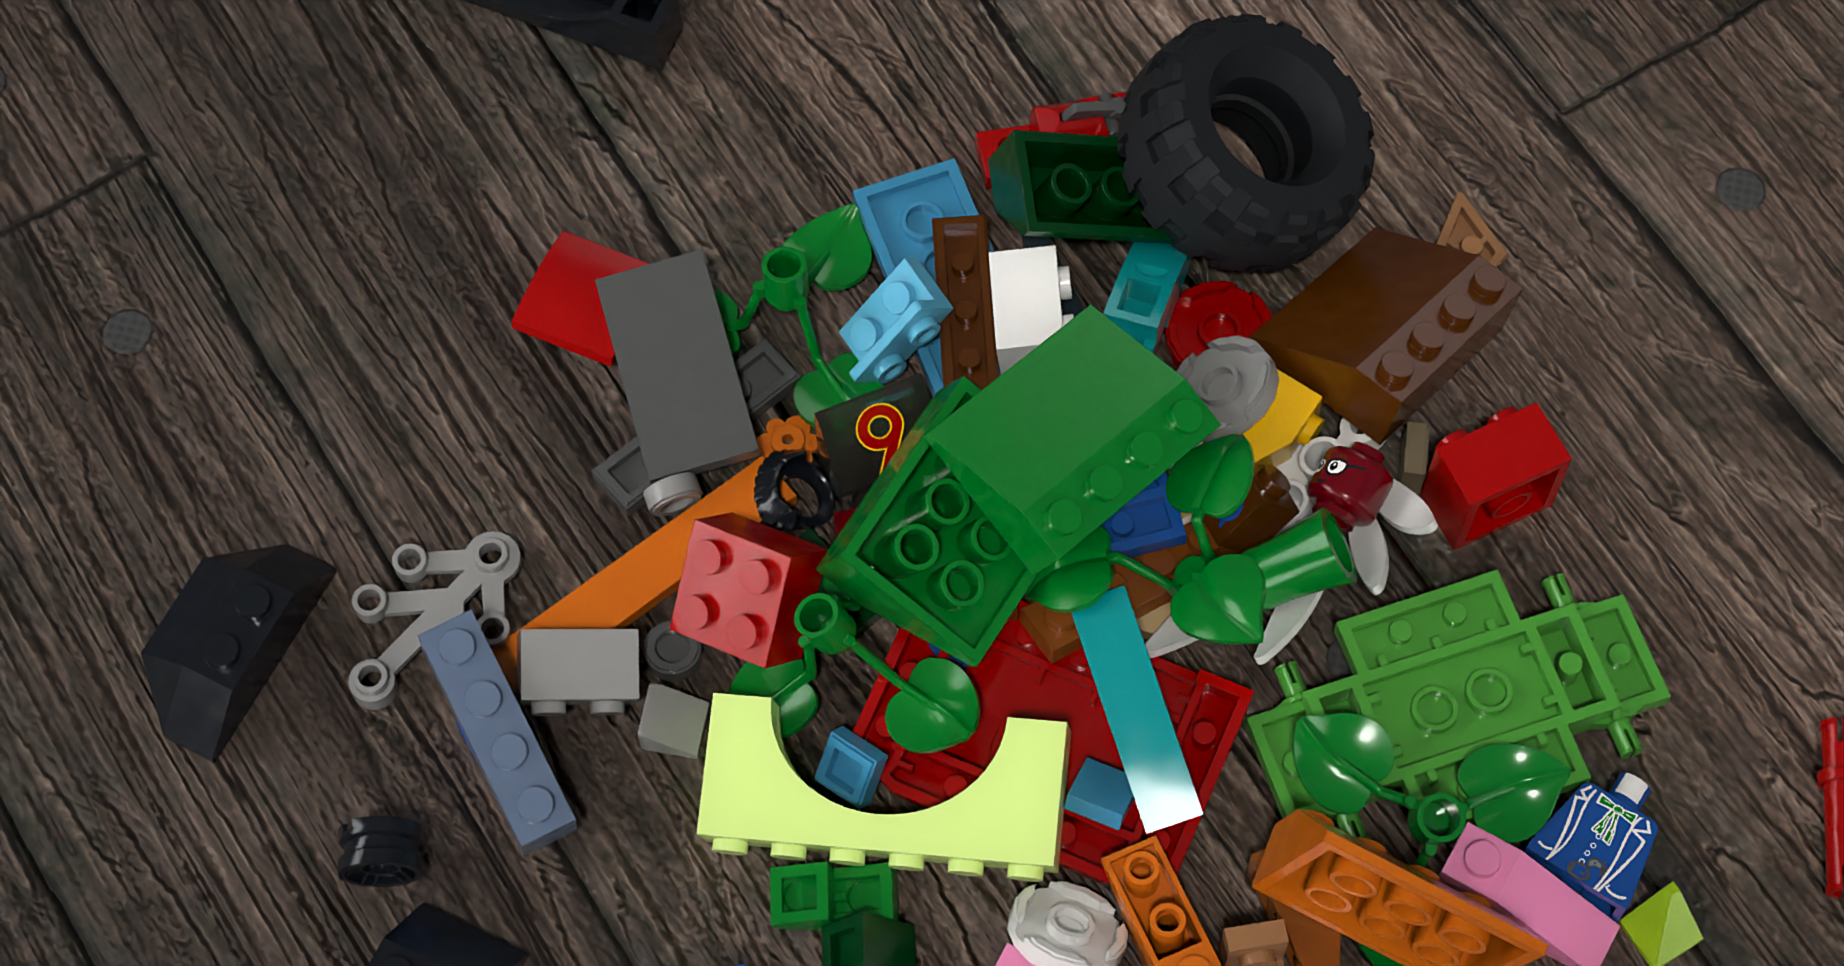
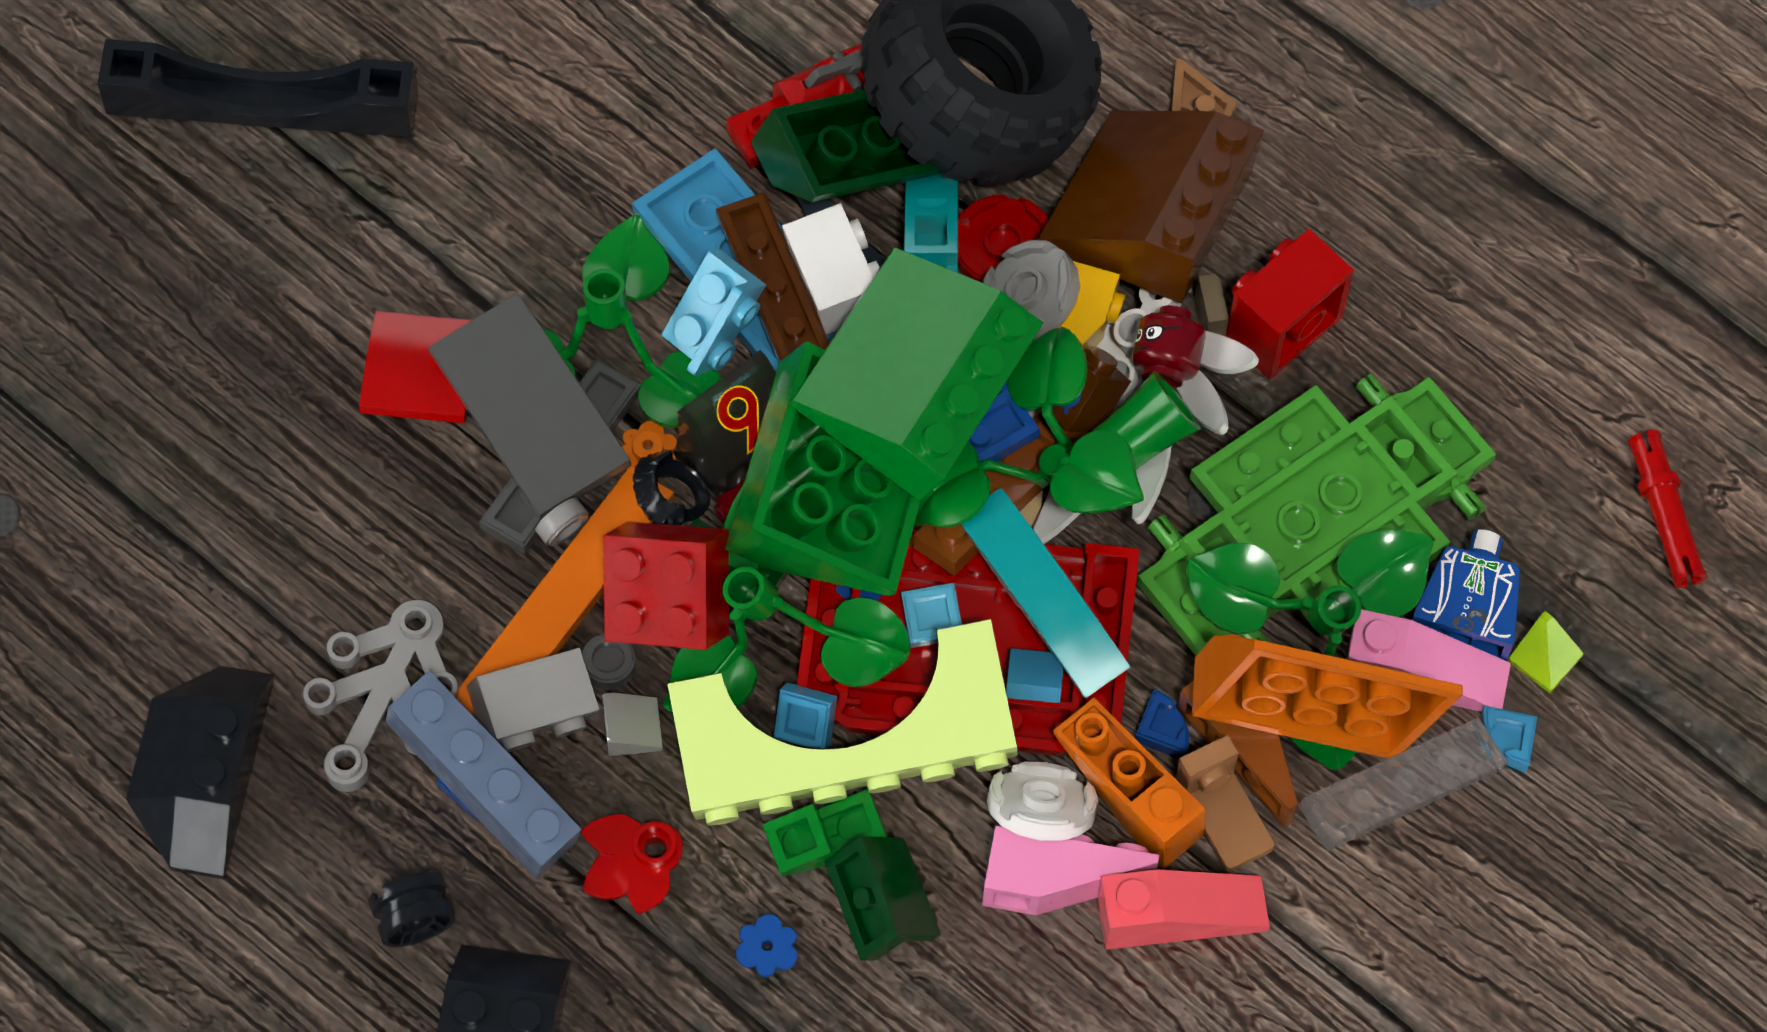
camera: 20 degrees left, 0 degrees up
(617, 869) = (625, 866): none -> red plate
(1015, 694) = (930, 611): none -> medium azure tile
(1224, 886) = (1163, 727): none -> blue tile

